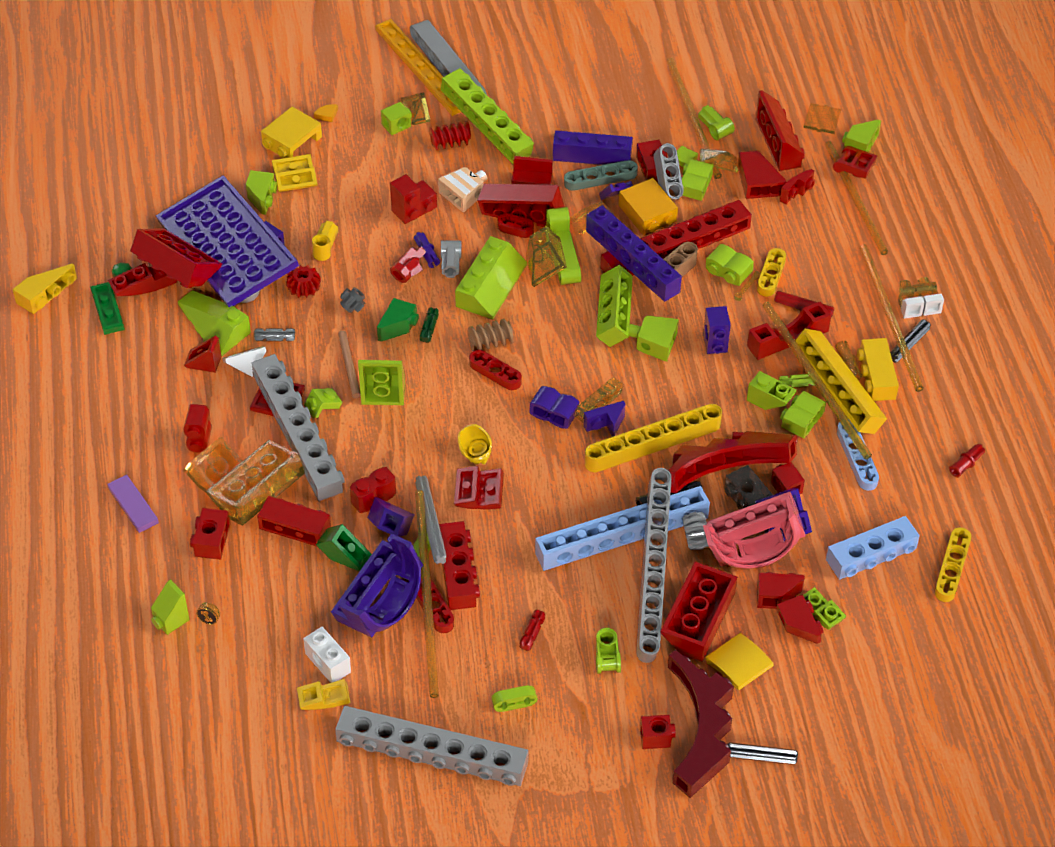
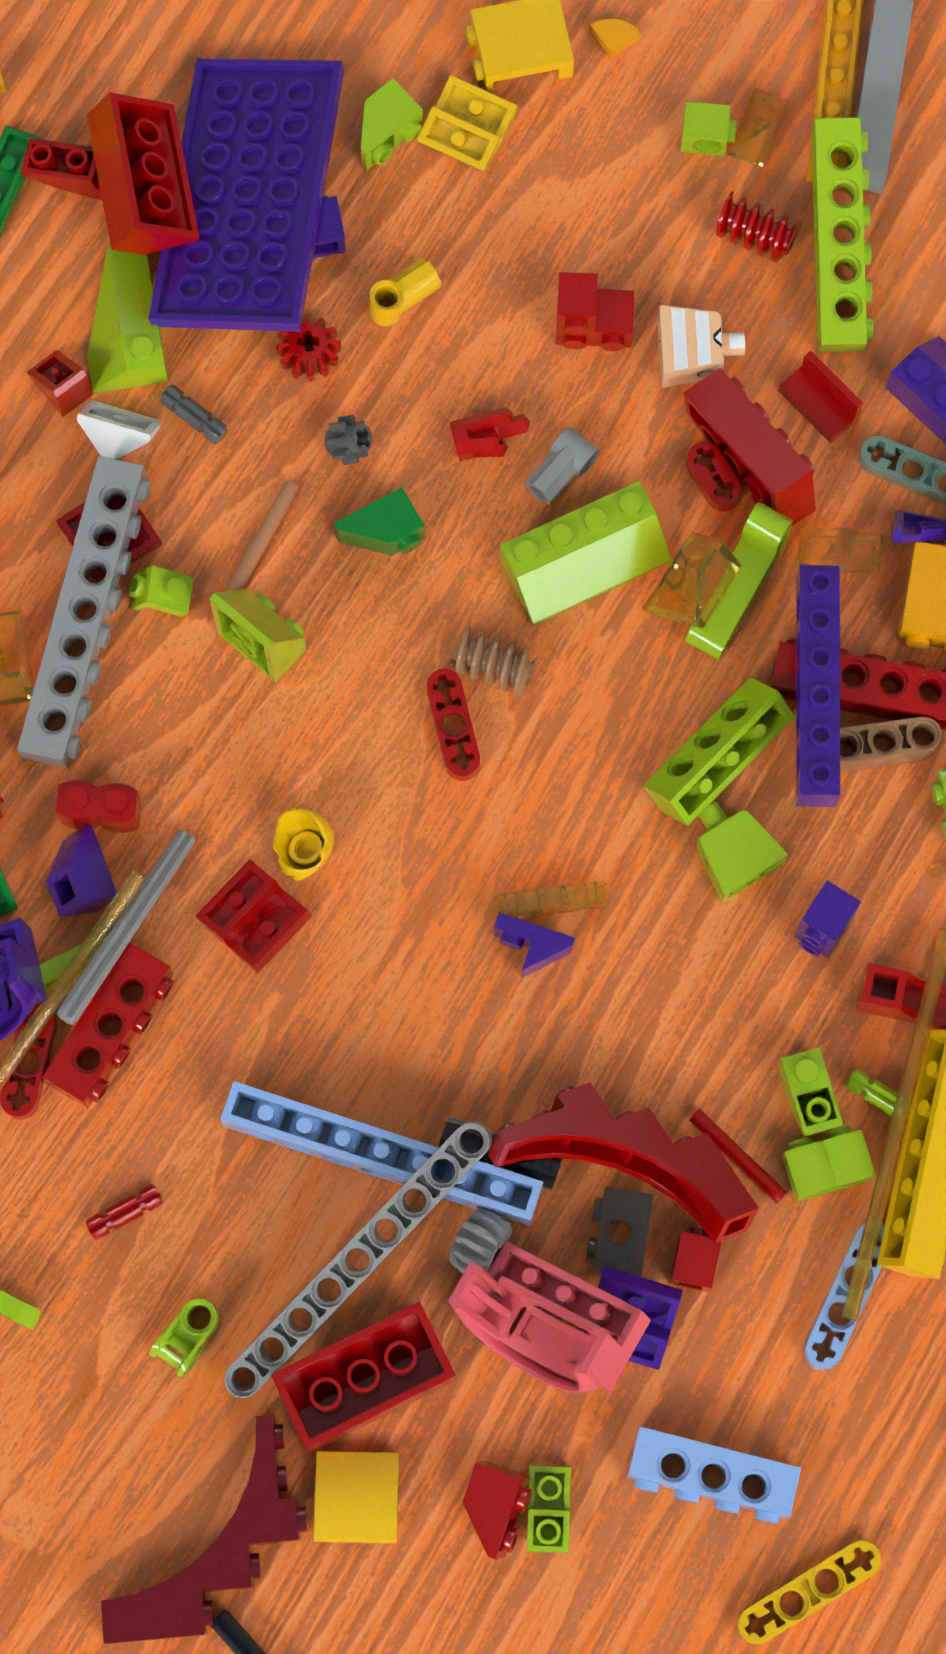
camera: 40 degrees right, 25 degrees up
(120, 268) = (72, 128): green tile -> none
(429, 325) = (427, 567): dark green axle -> none
(430, 256) = (540, 423): dark purple axle -> none
(554, 407) = (476, 861): dark purple brick -> none
(653, 438) = (584, 1045): yellow beam -> none
(655, 740) = (125, 1510): red brick -> none
(777, 588) = (510, 1429): red slope -> none

